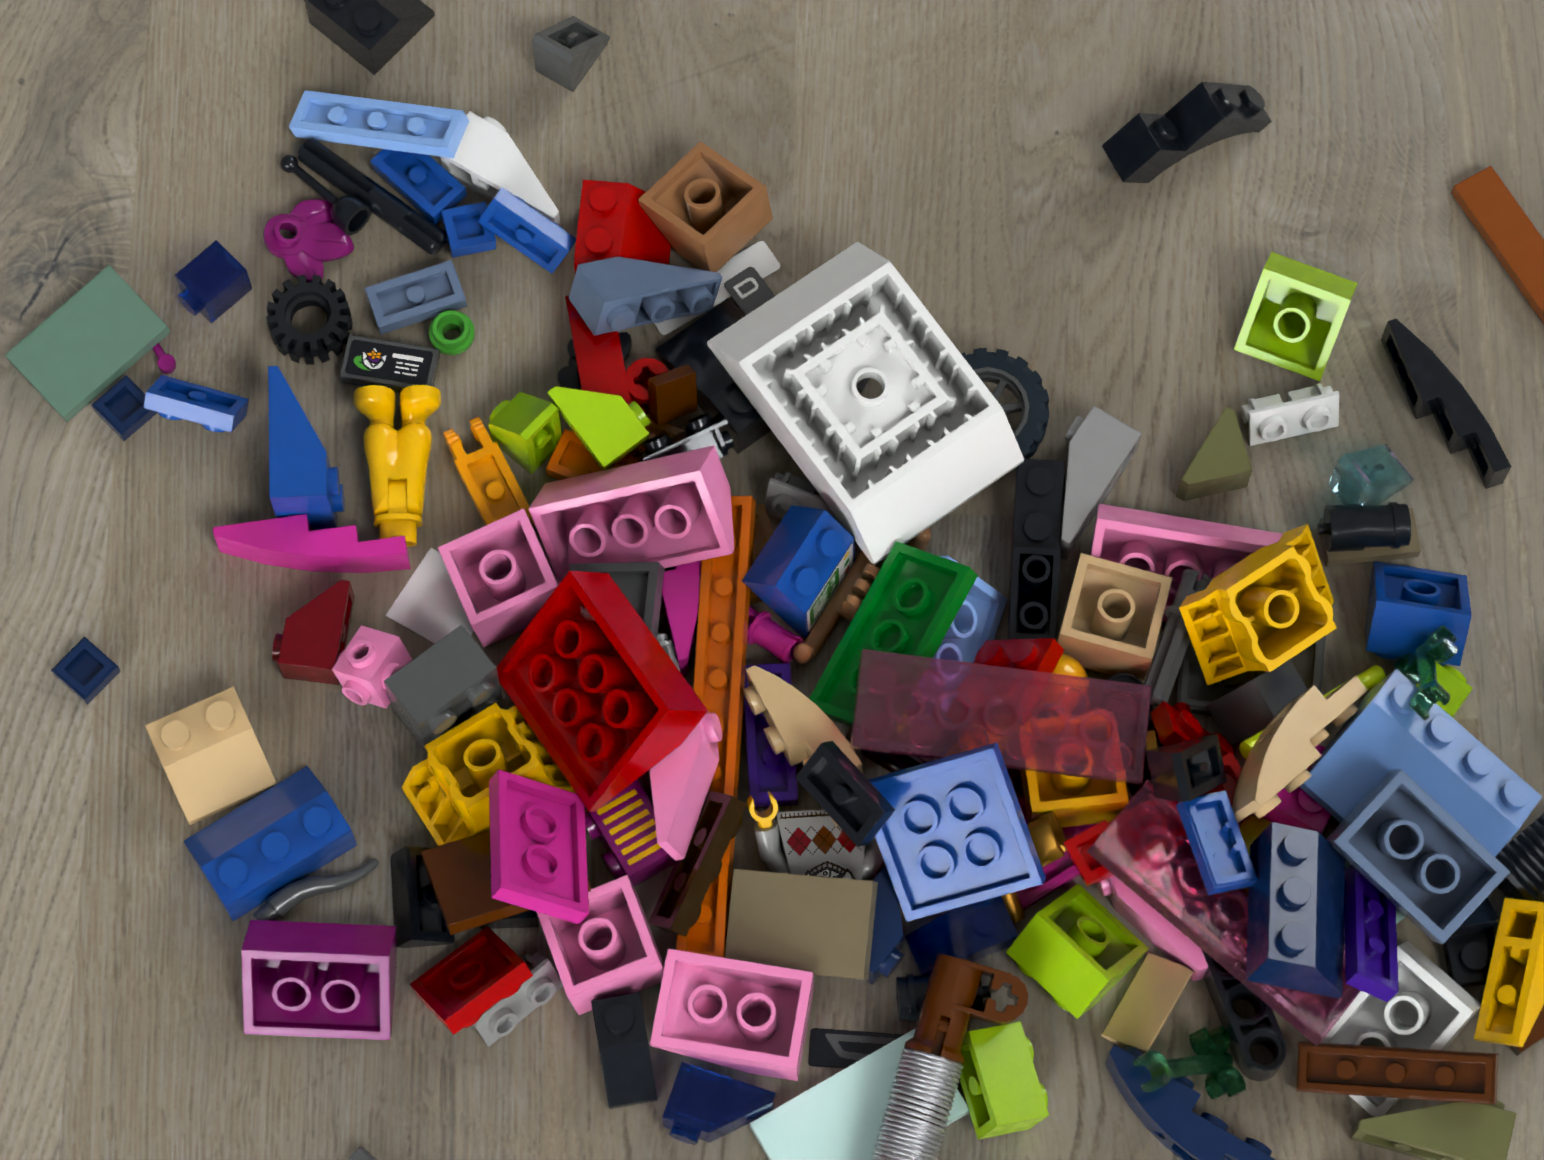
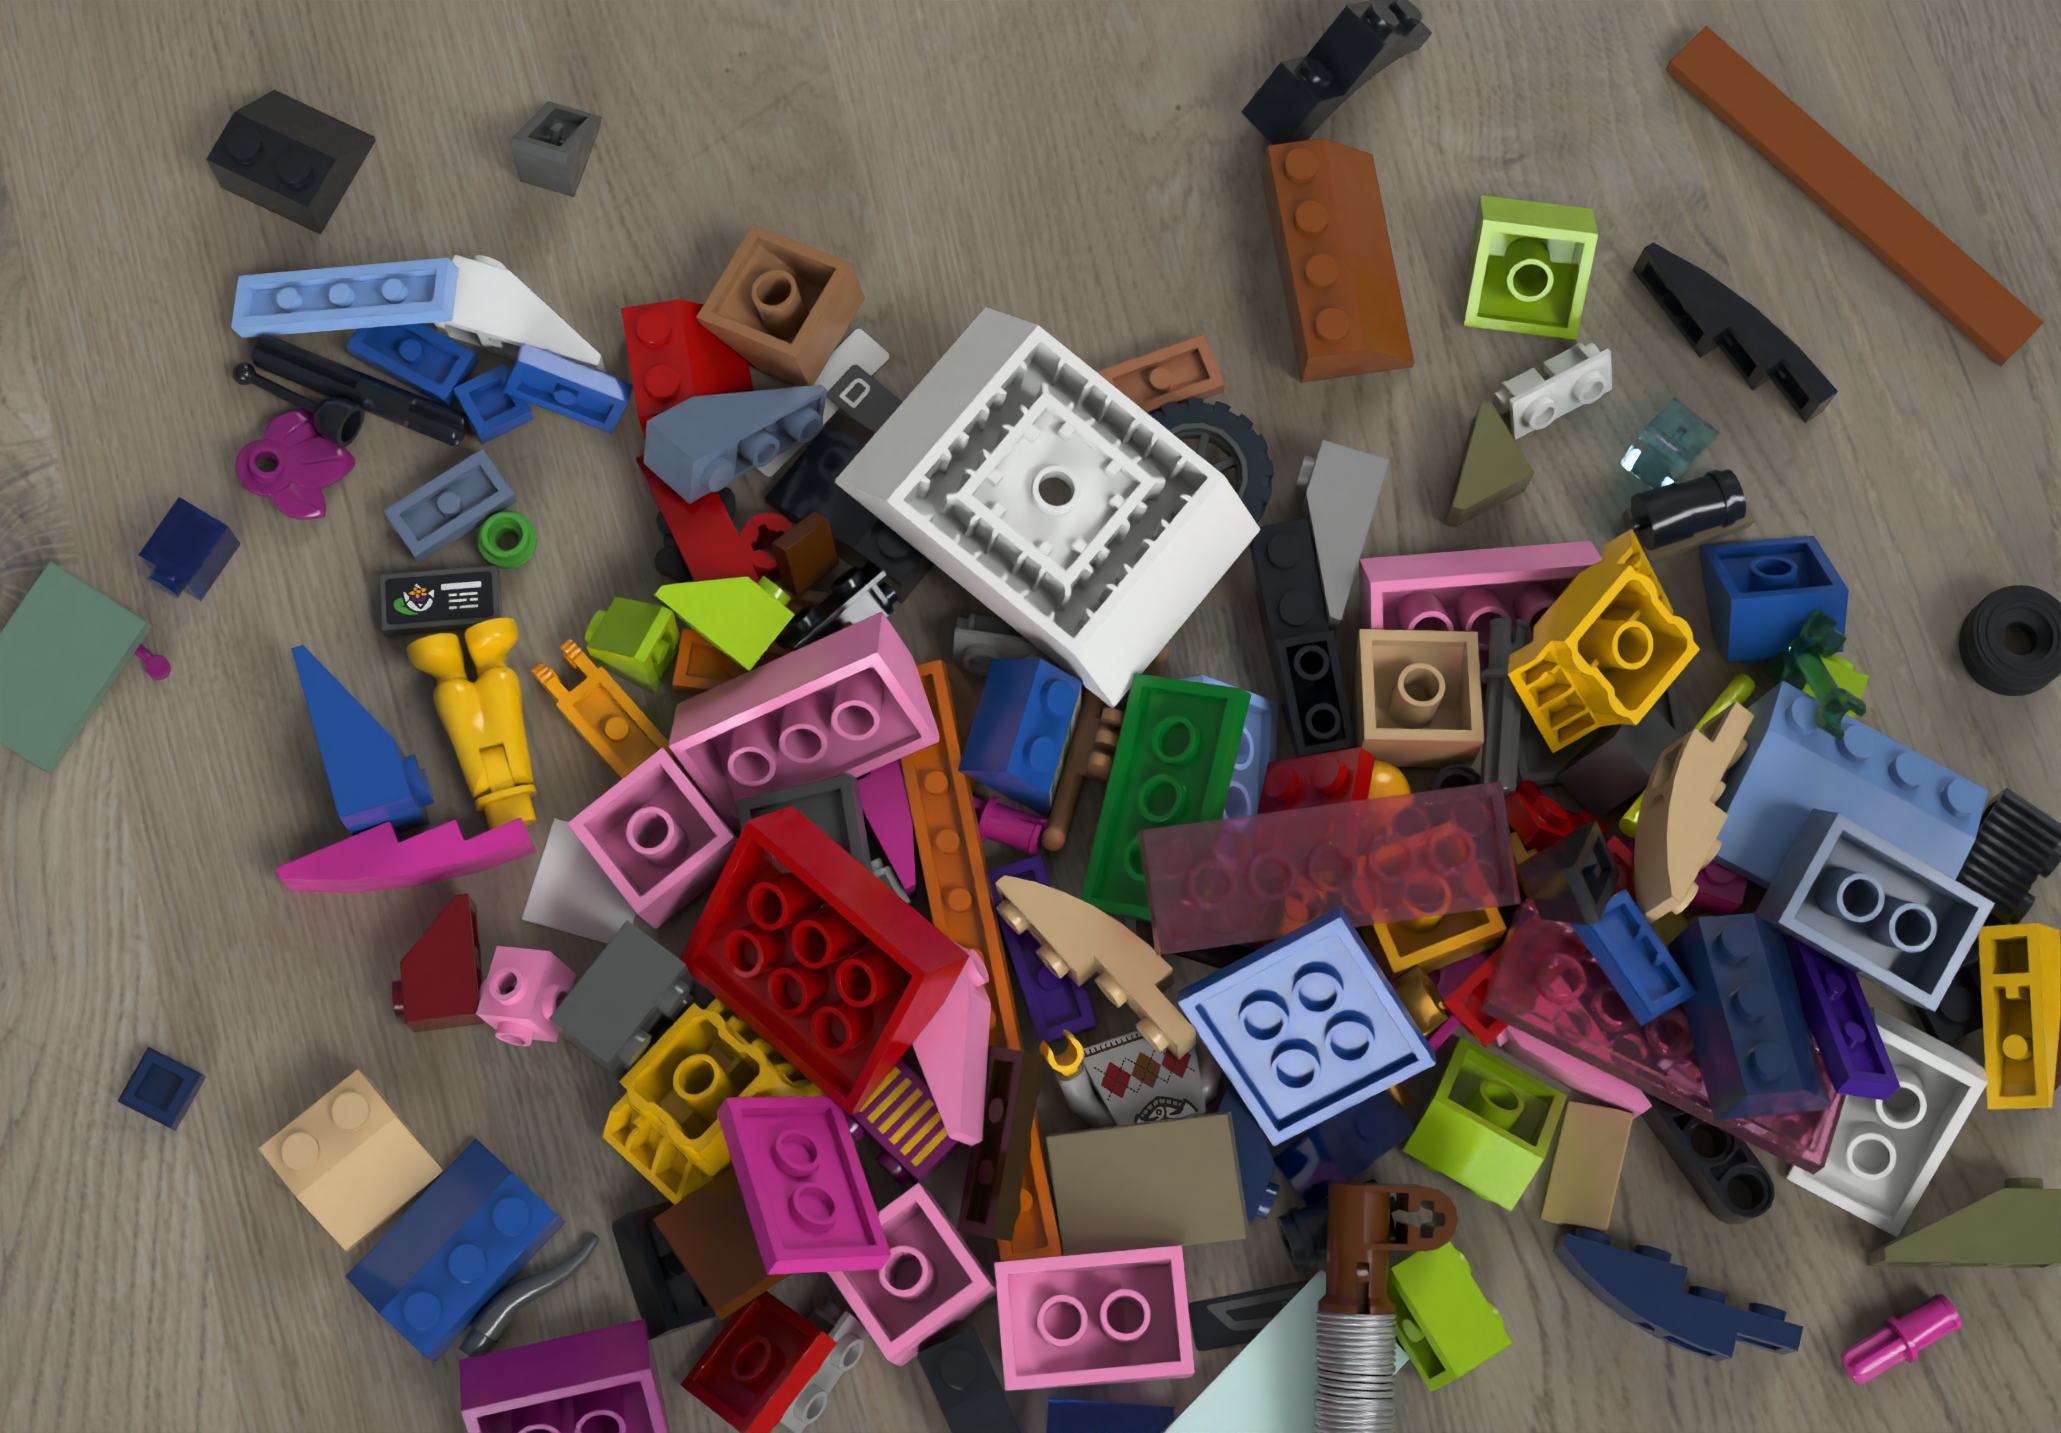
camera: 20 degrees left, 5 degrees up
(123, 408) = (120, 738): dark blue tile -> none
(188, 401) = (209, 711): blue plate -> none
(304, 295) = (313, 535): black tyre -> none
(845, 793) = (1167, 1016): black plate -> none
(988, 329) = (1168, 375): none -> nougat plate
(1146, 275) = (1335, 260): none -> dark orange slope
(1210, 1060) = (1685, 1221): clear green bar -> none
(1398, 1072) = (1913, 1176): reddish brown tile -> none

